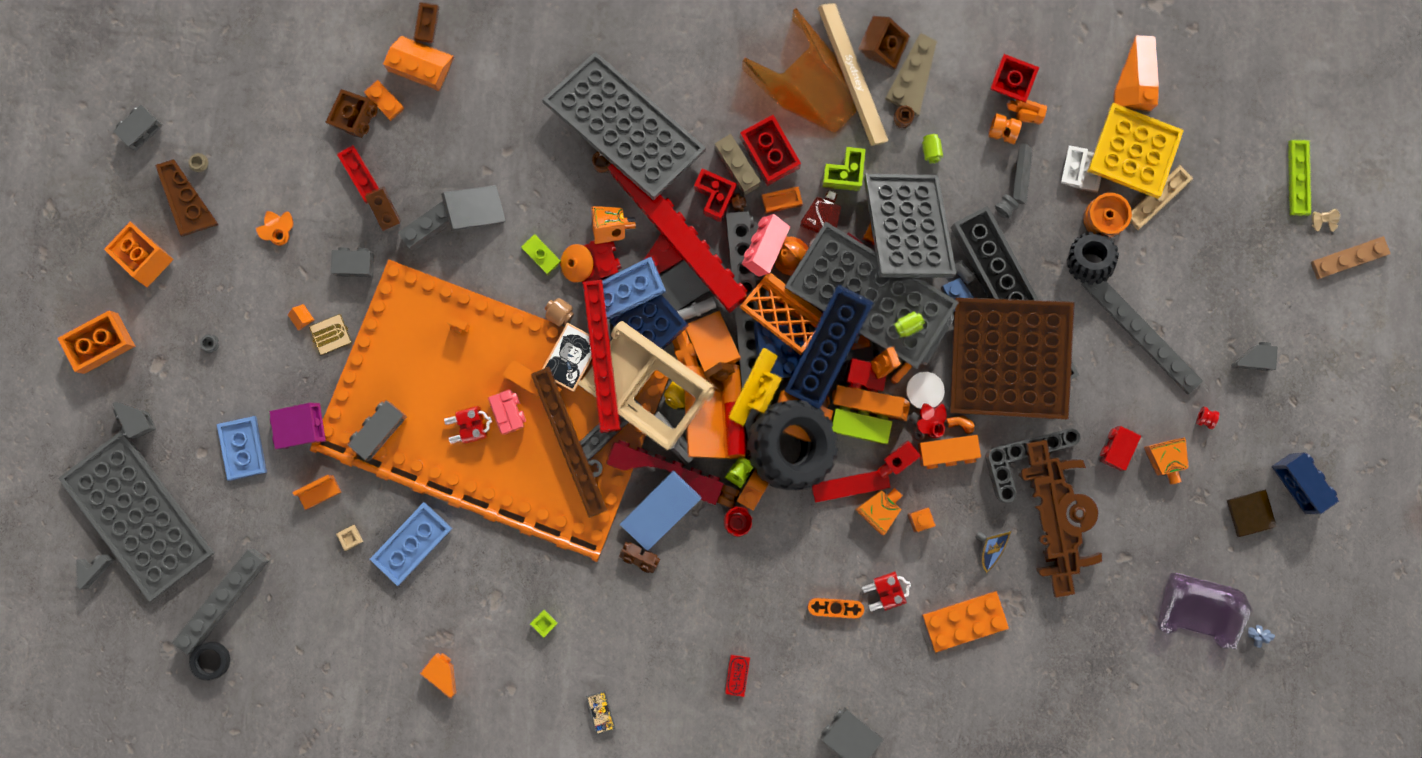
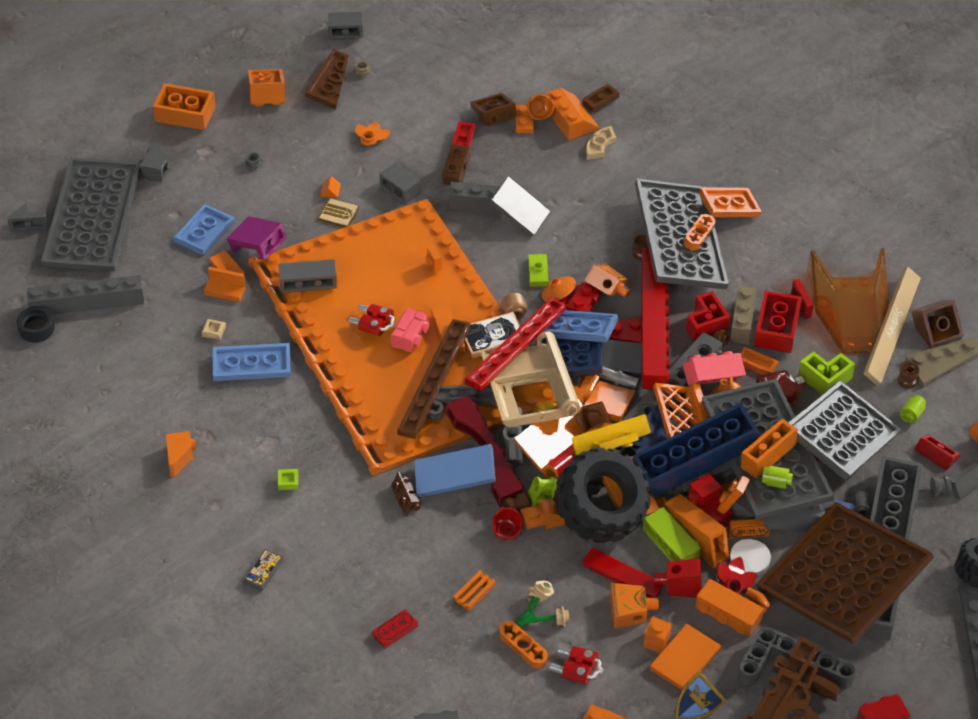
camera: 45 degrees right, 35 degrees down
(298, 469) = (224, 261): none -> orange tile
(392, 82) = (540, 107): none -> orange hair
(466, 73) = (600, 140): none -> tan tile
(631, 54) = (730, 202): none -> orange plate
(642, 105) = (698, 226): none -> orange beam
(766, 107) = (806, 304): none -> red tile
(770, 596) = (483, 579): none -> orange tile
(826, 570) = (536, 594): none -> plant
(884, 304) = (769, 448): none -> orange brick
(951, 517) = (685, 656): none -> orange tile
(976, 171) = (937, 452): none -> red slope

